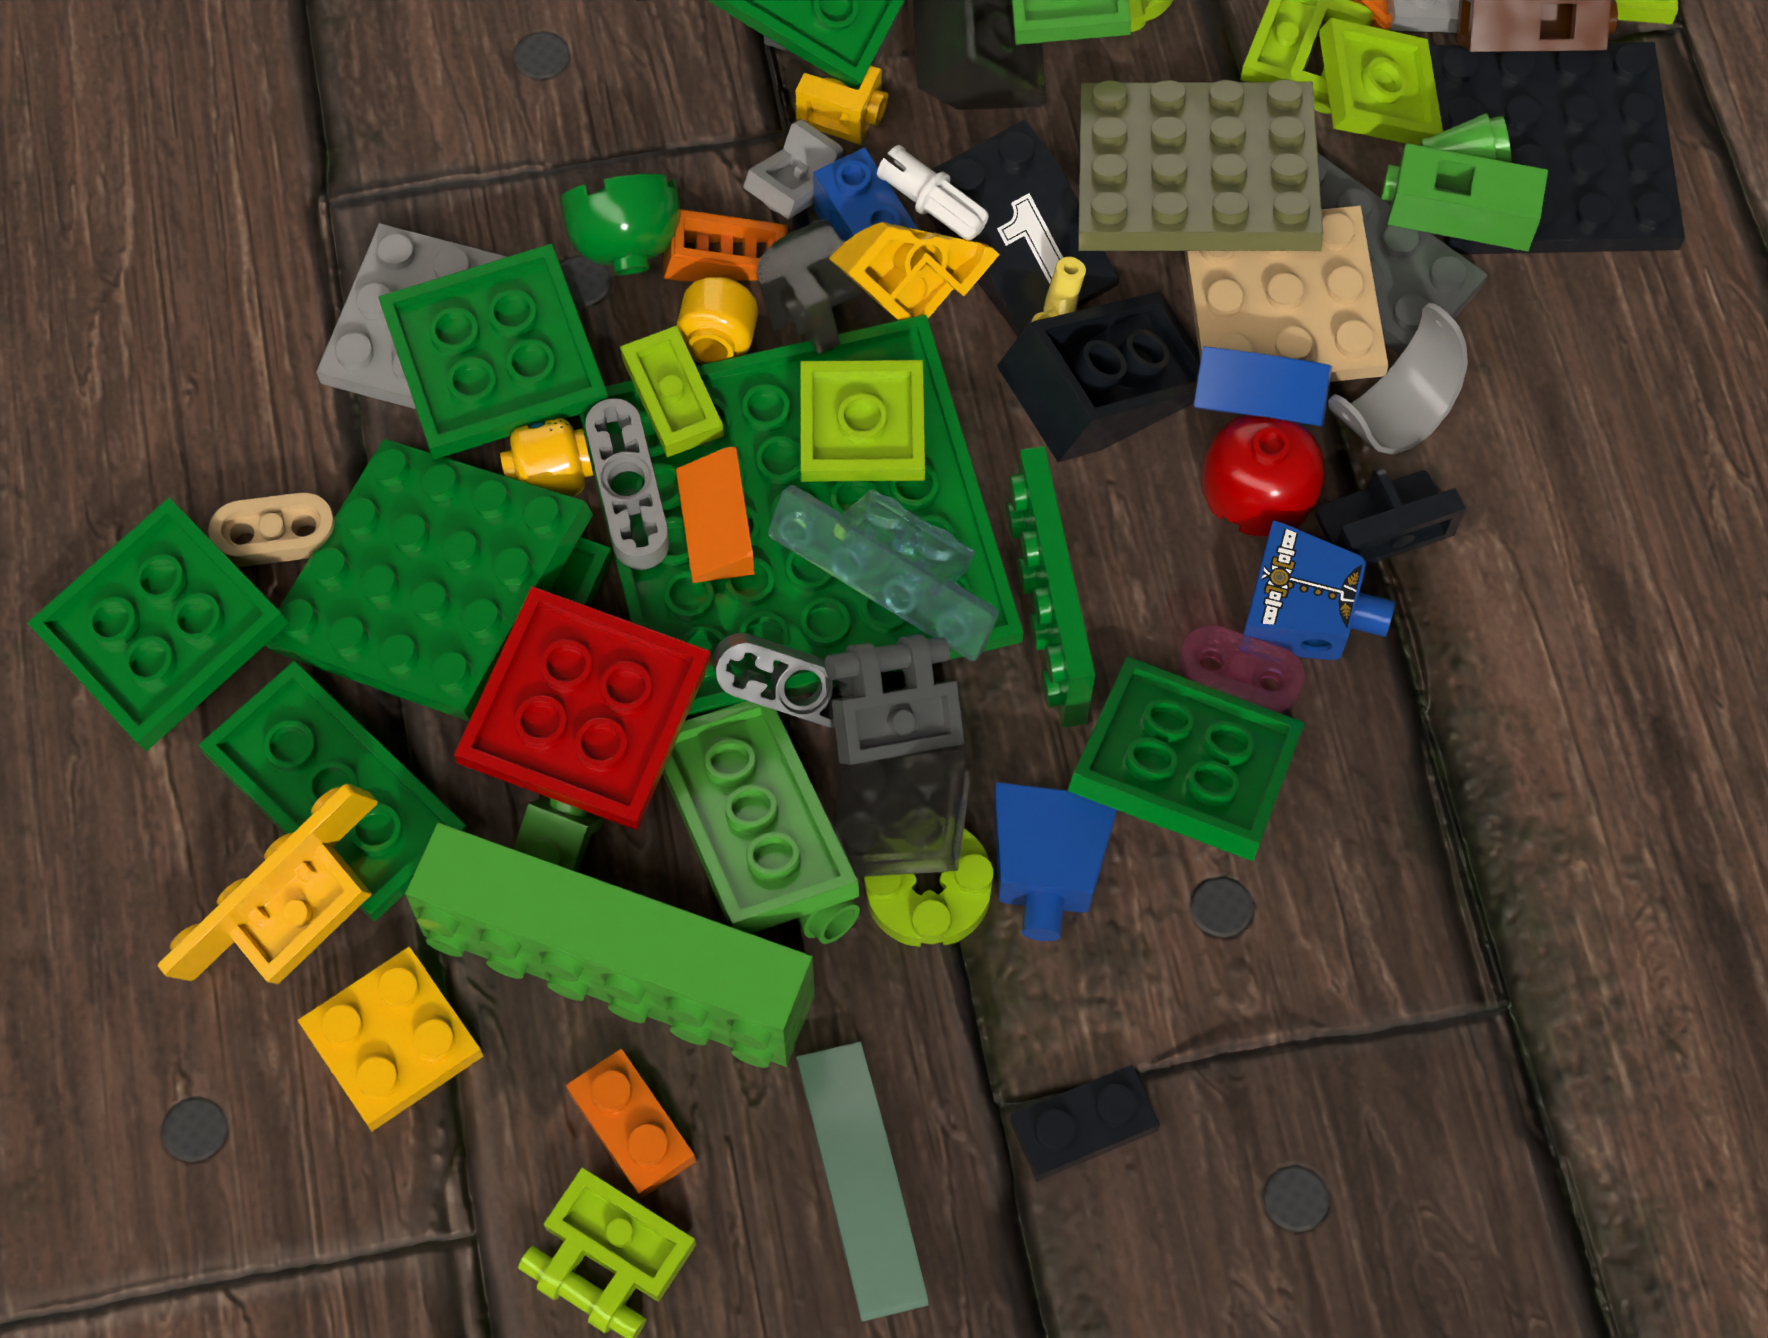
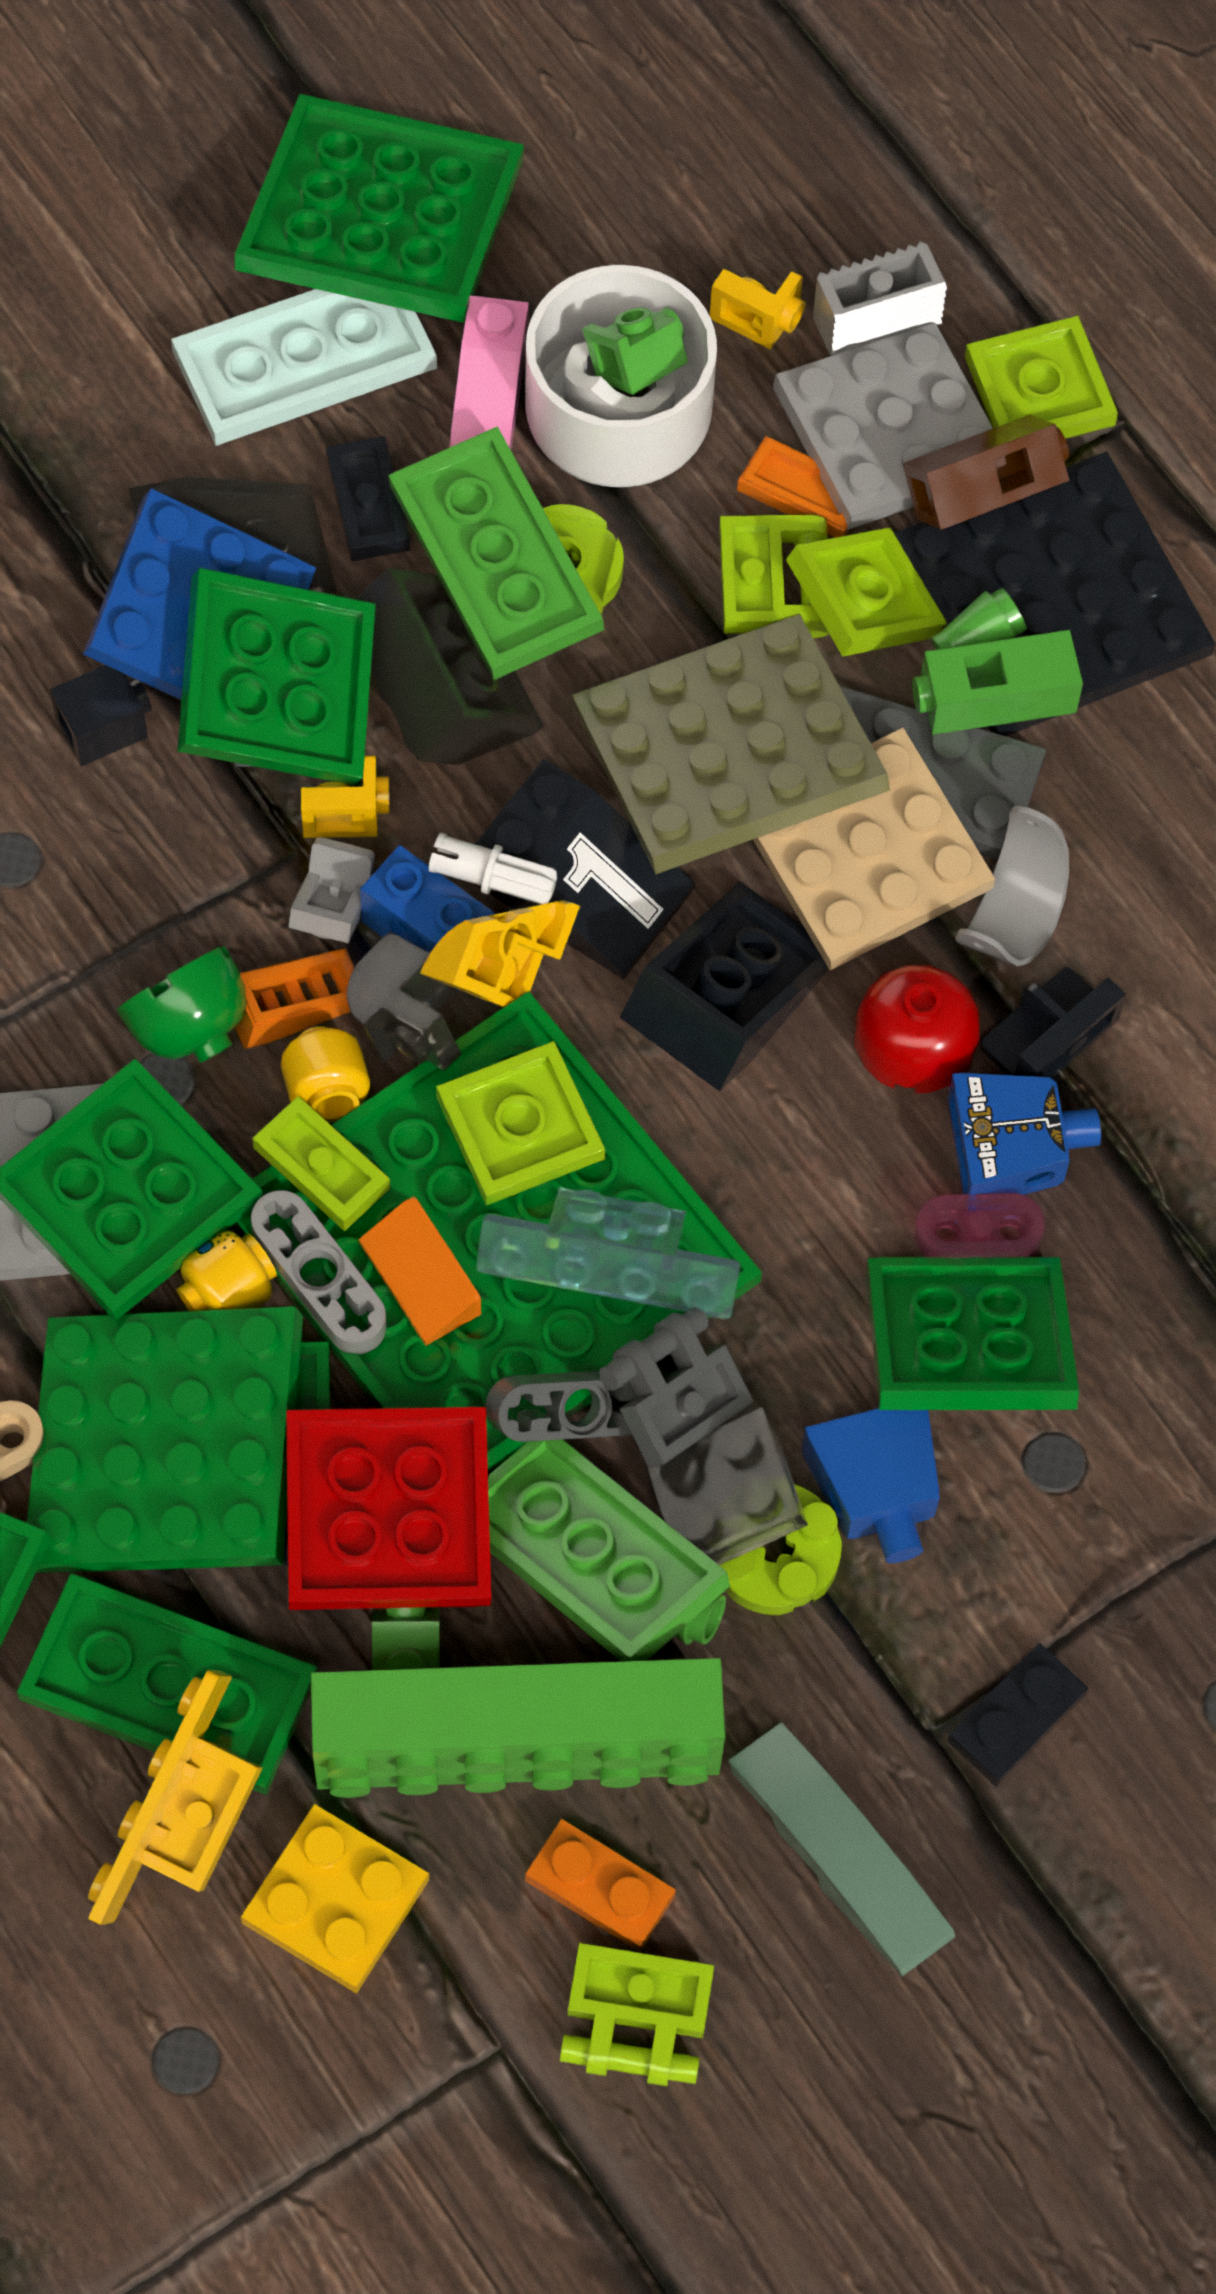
camera: 25 degrees left, 0 degrees up
(1048, 574) = (768, 1209): green plate -> none
(1063, 289) = (652, 925): light yellow arm -> none
(1262, 386) = (889, 945): blue slope -> none

